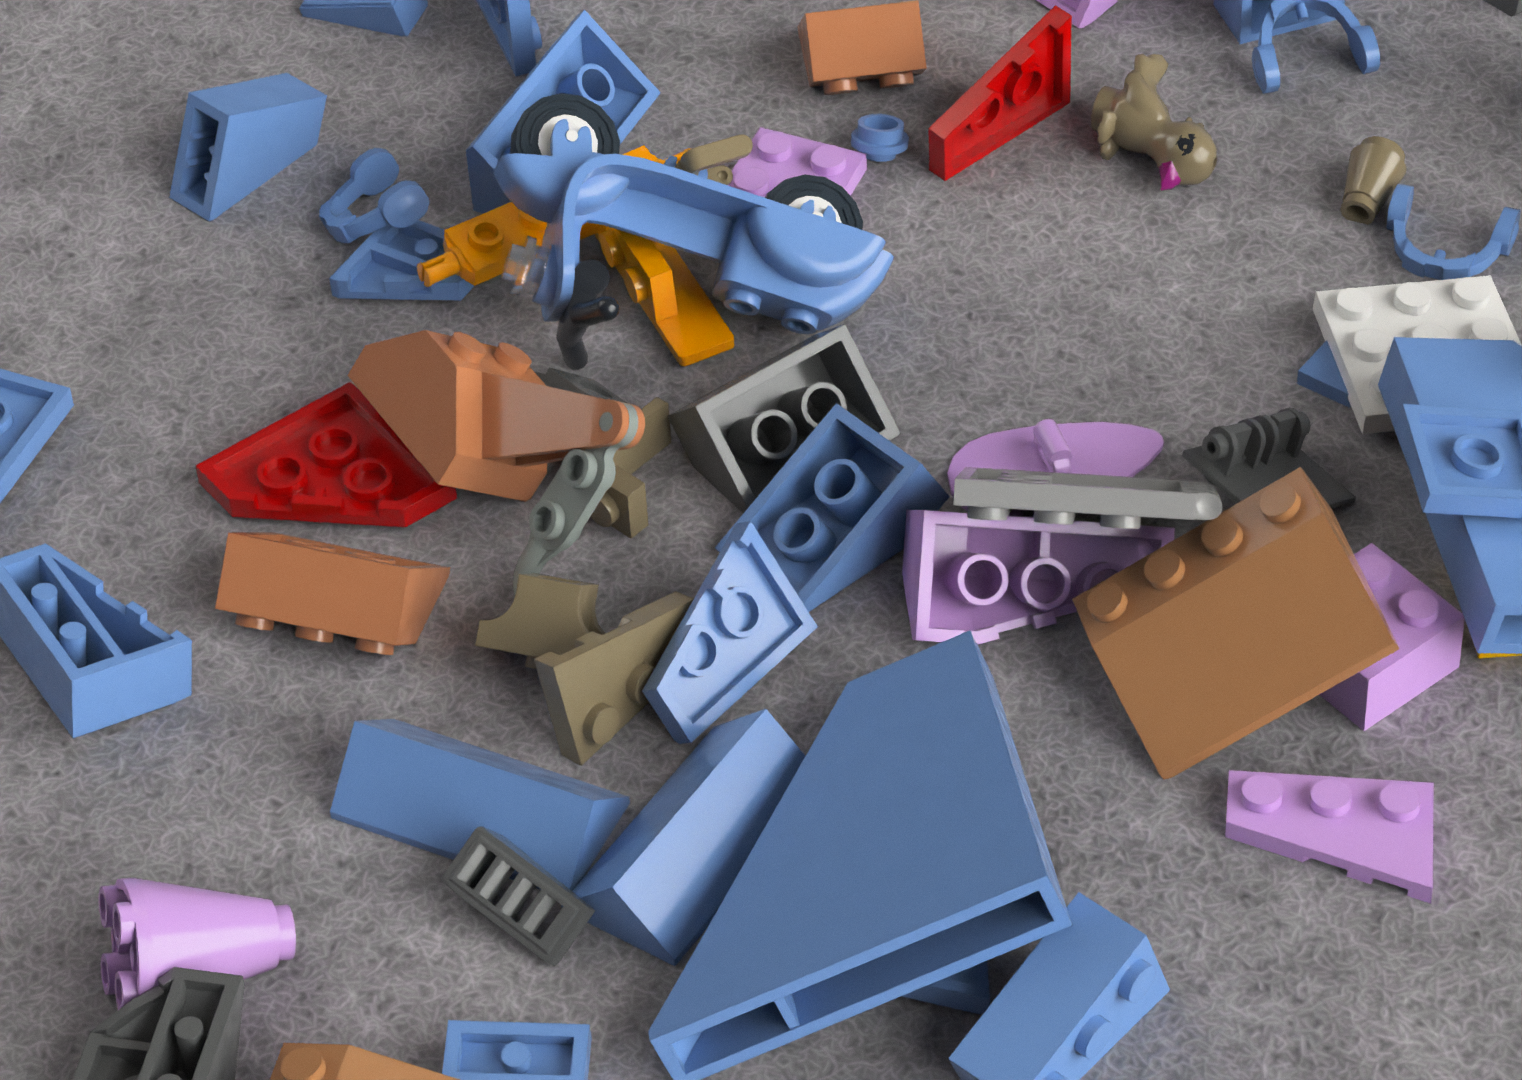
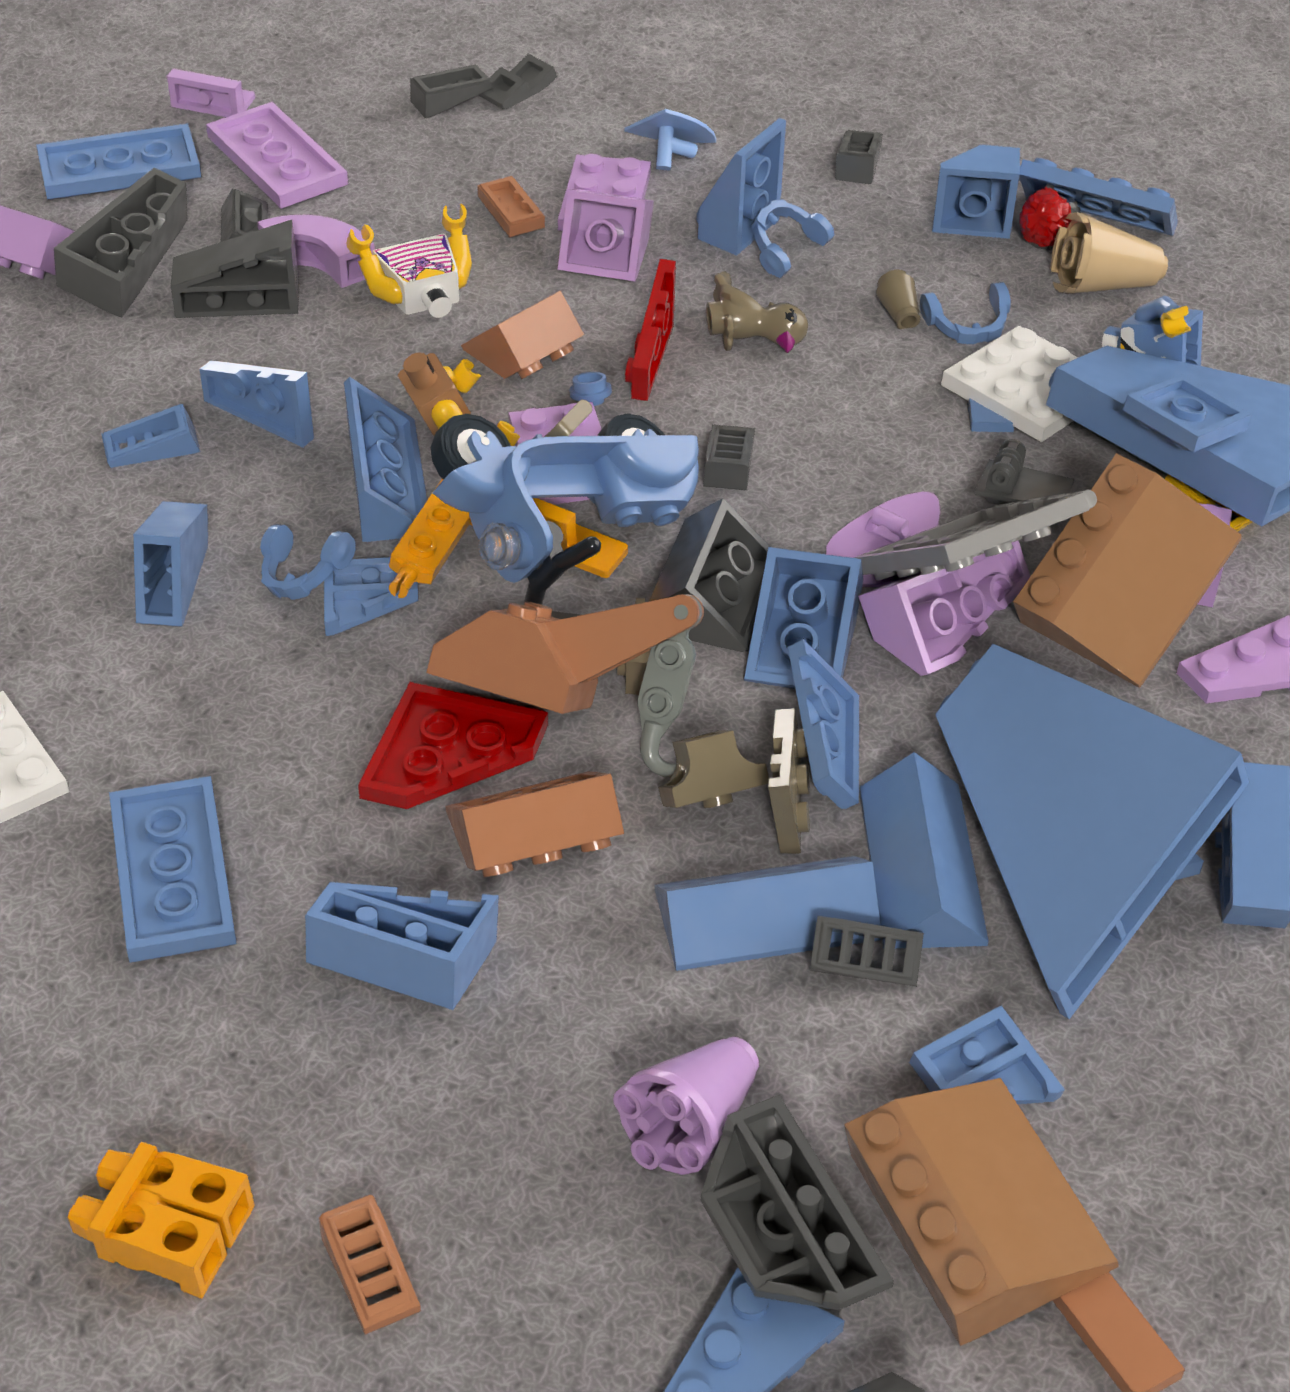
camera: 40 degrees left, 0 degrees up
(681, 77) = (436, 390): none -> medium nougat torso
(950, 310) = (728, 457): none -> dark grey slope

